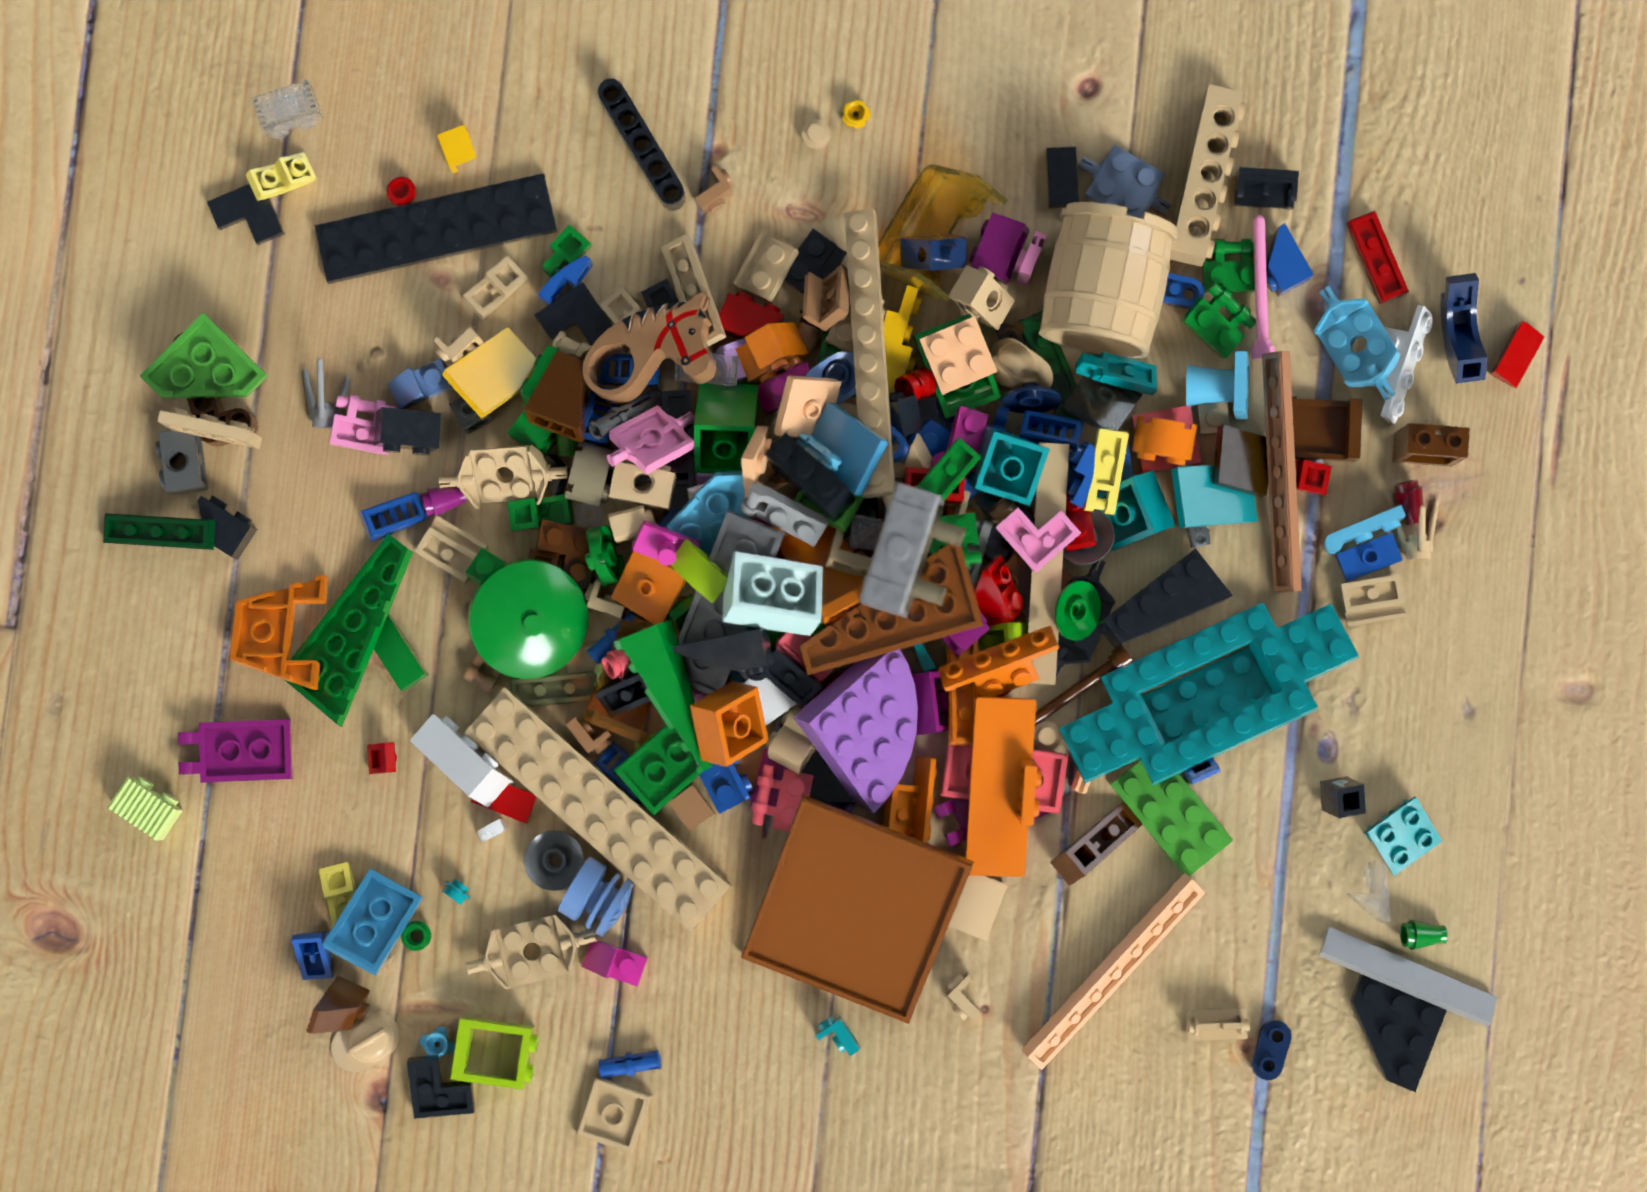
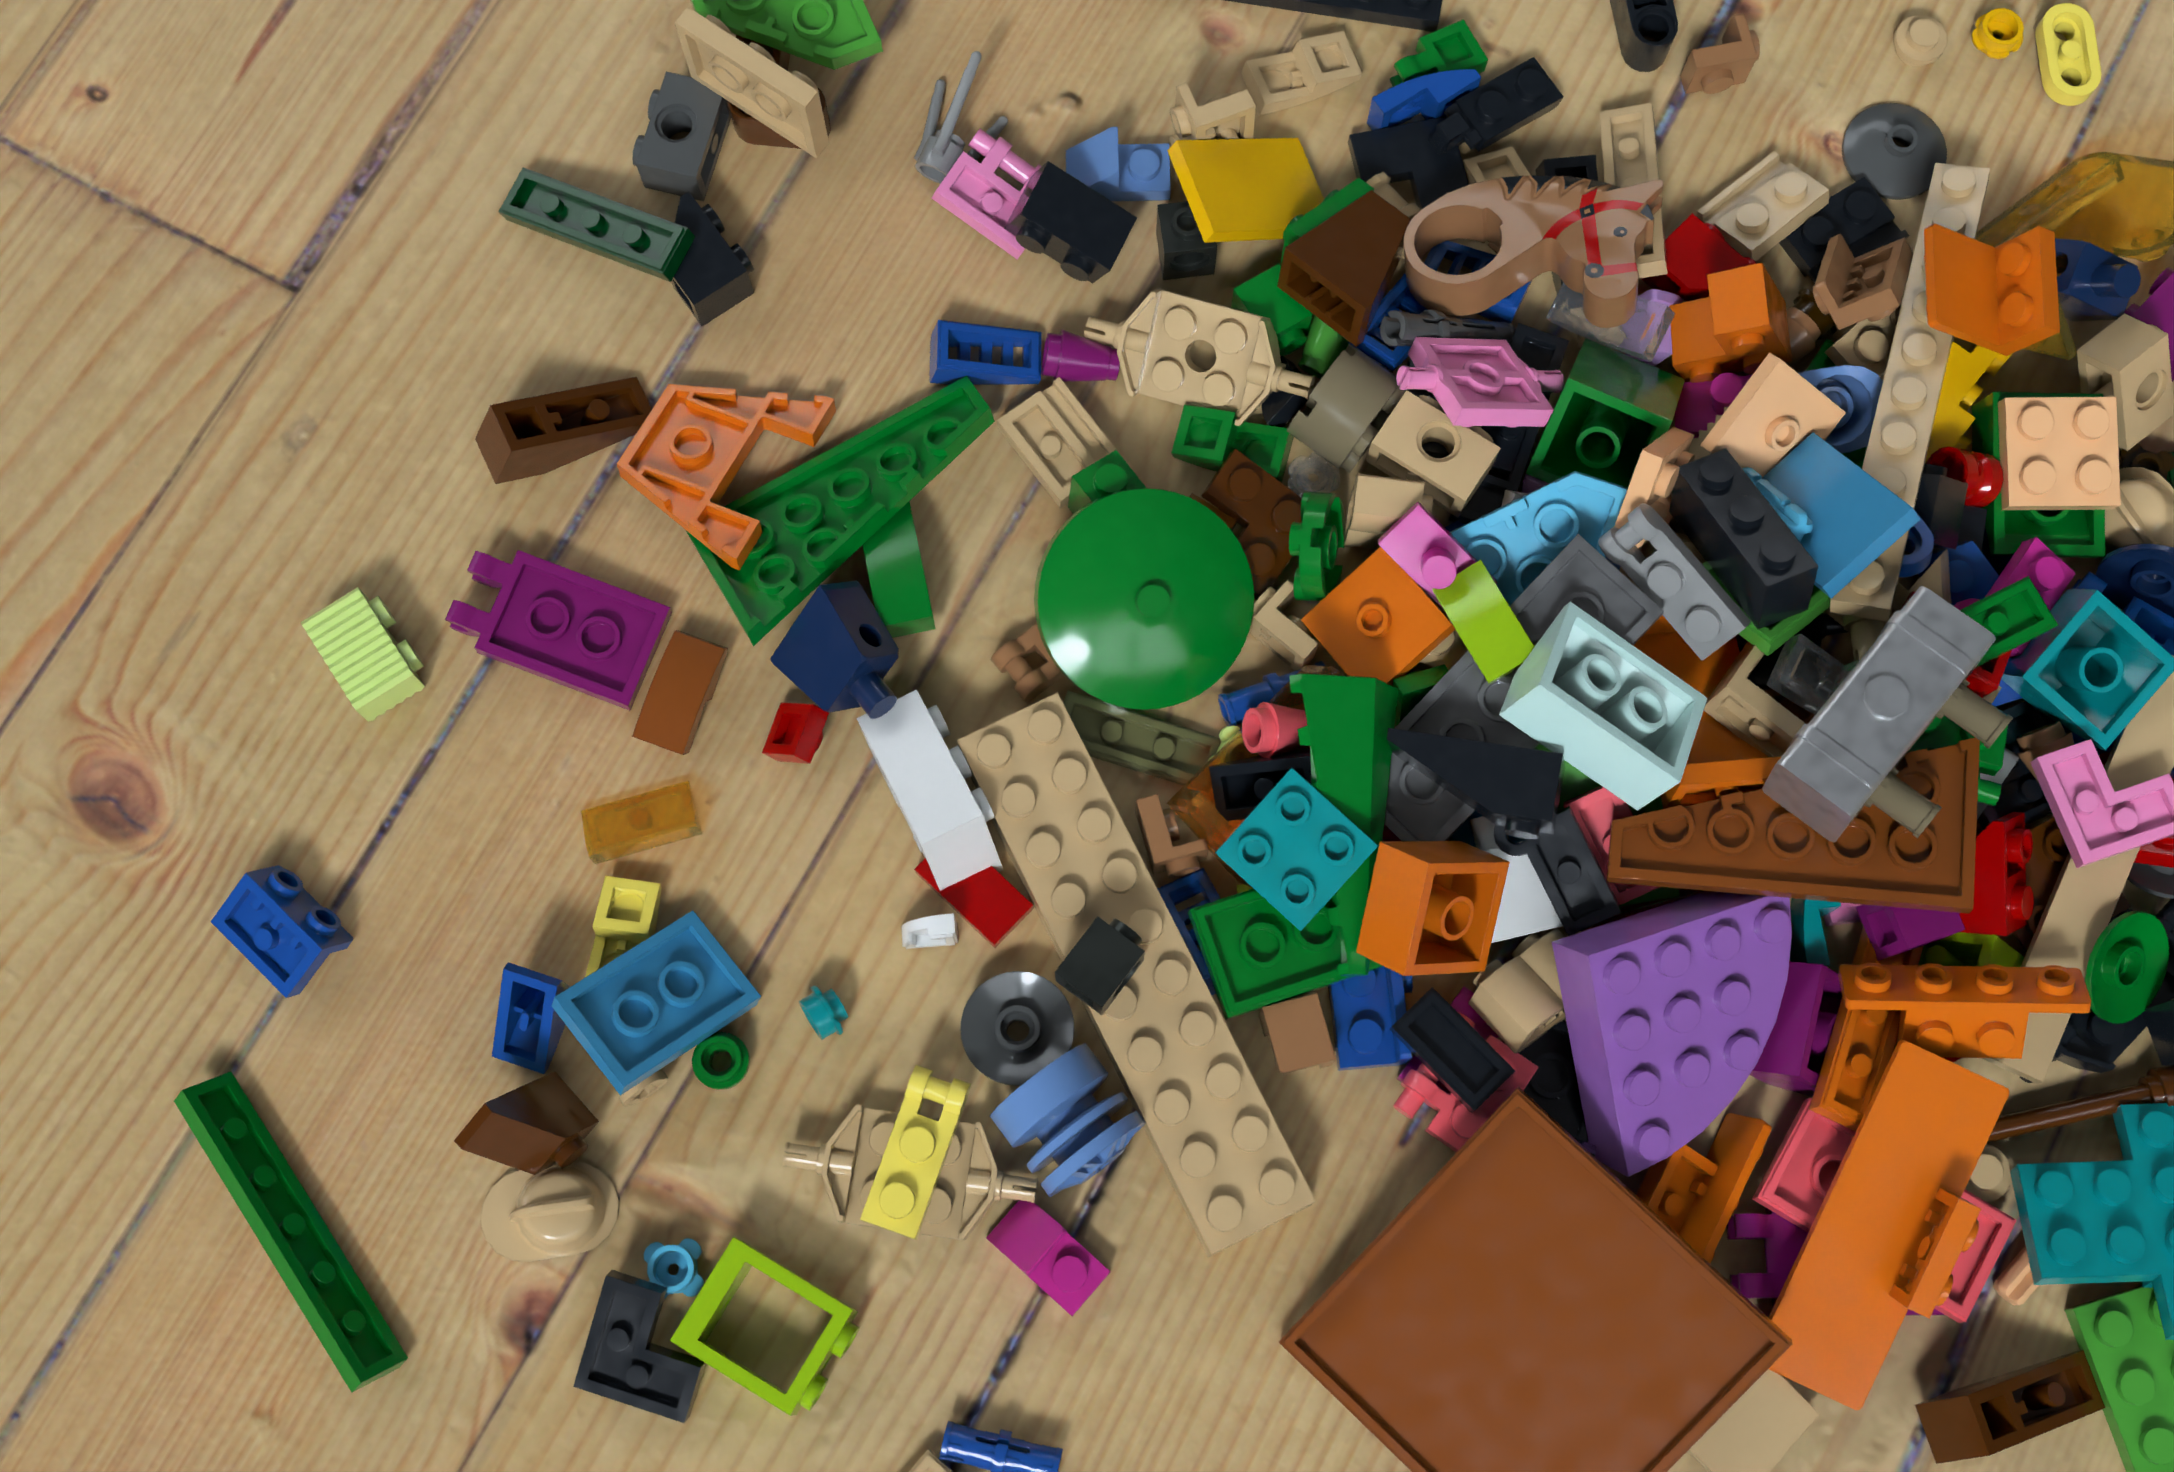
camera: 15 degrees right, 10 degrees down
(169, 961) = (280, 927): none -> blue bracket
(191, 647) = (559, 427): none -> reddish brown slope
(244, 1103) = (291, 1230): none -> green plate
(313, 761) = (679, 692): none -> dark orange slope
(323, 834) = (640, 822): none -> clear yellow slope
(387, 711) = (840, 651): none -> dark blue torso
(530, 943) = (915, 1154): none -> light yellow plate
(580, 818) = (1101, 963): none -> pearl dark grey brick
(606, 268) = (1497, 108): none -> black hinge
(652, 723) = (1296, 849): none -> teal hinge
(767, 786) = (1452, 1050): none -> black tile
(824, 217) = (1892, 169): none -> dark grey dish
(887, 288) = (1990, 293): none -> orange bracket
(897, 112) = (2068, 59): none -> light yellow plate

